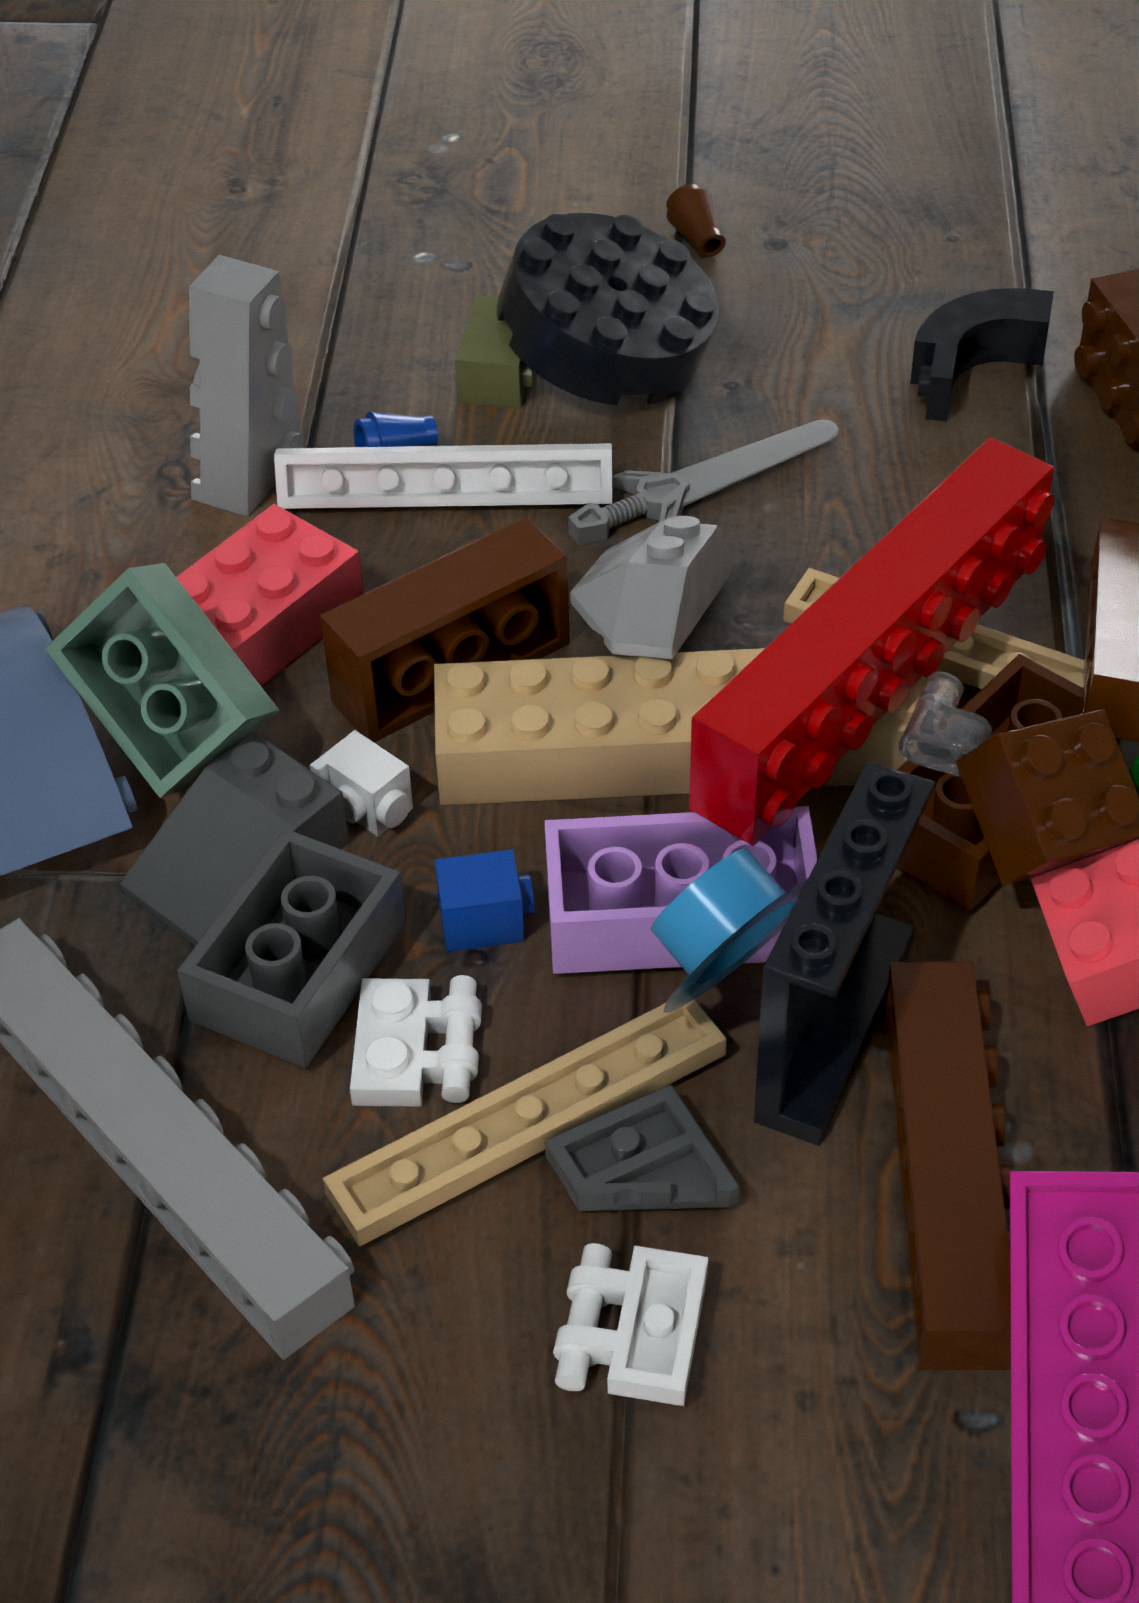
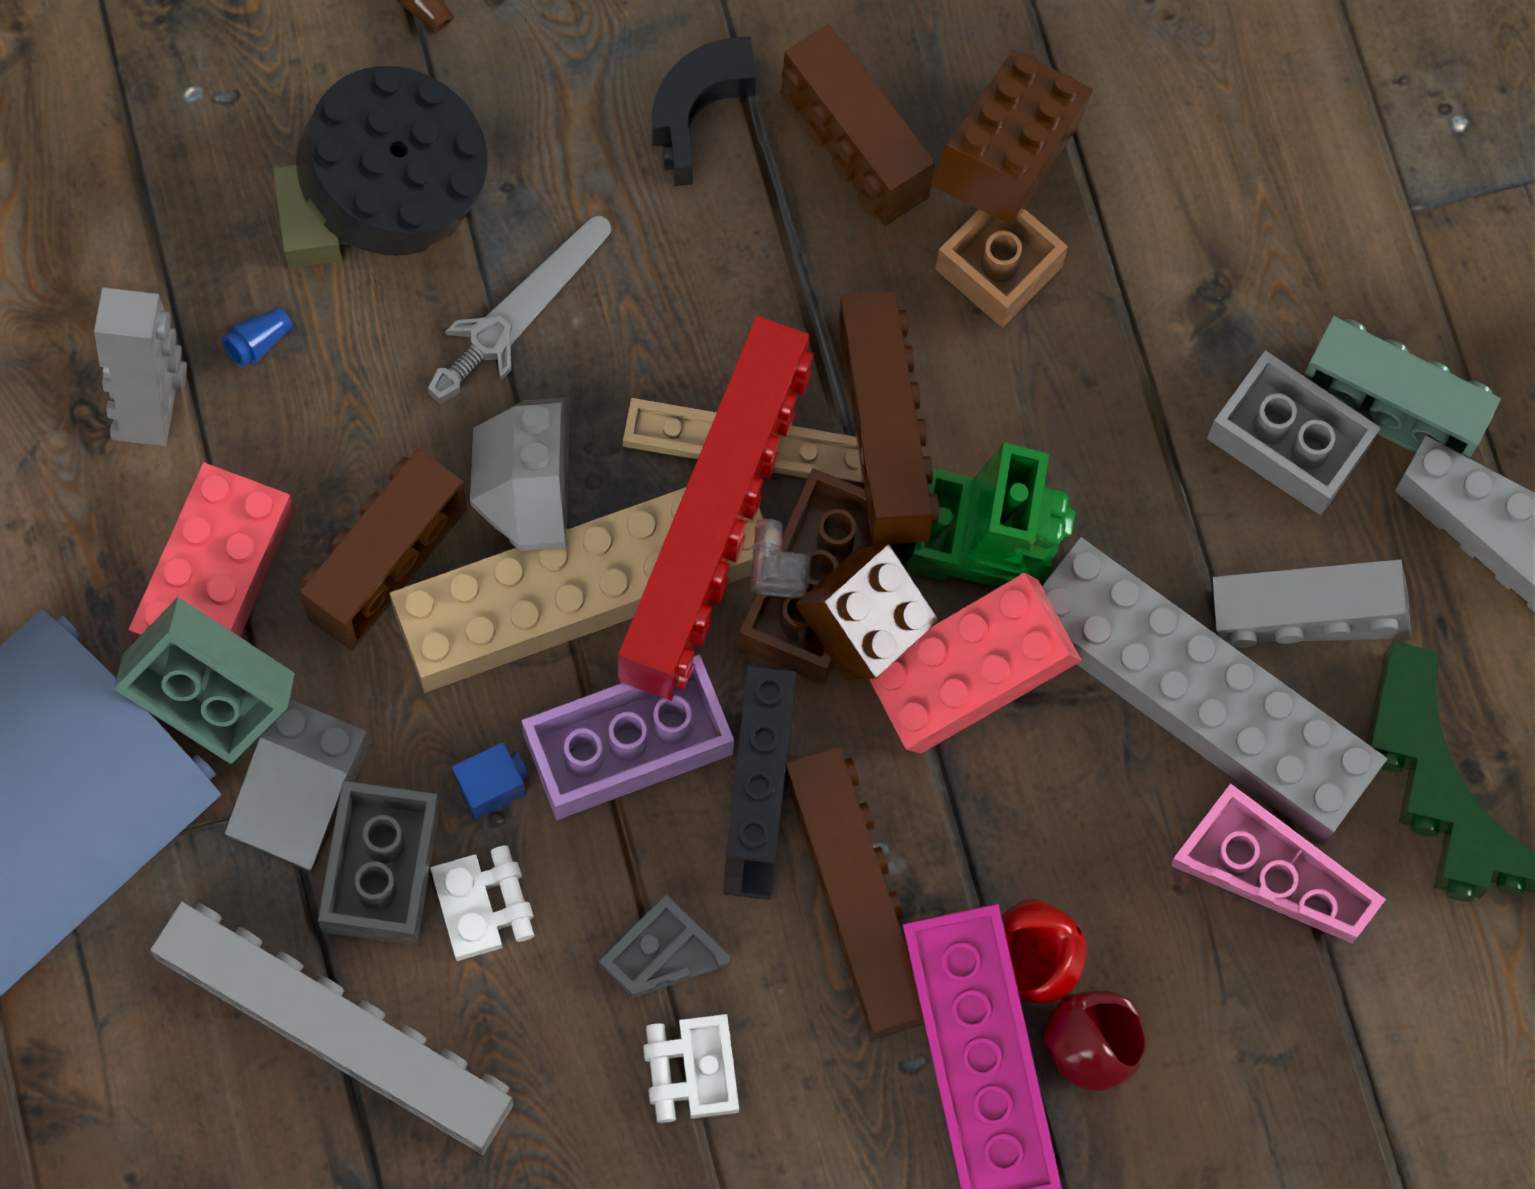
camera: 25 degrees left, 25 degrees up
(371, 781) = (370, 703): white brick -> none
(443, 476) = (315, 374): white plate -> none
(519, 1118) = (579, 942): tan plate -> none
(722, 922) = (680, 789): dark azure hose -> none

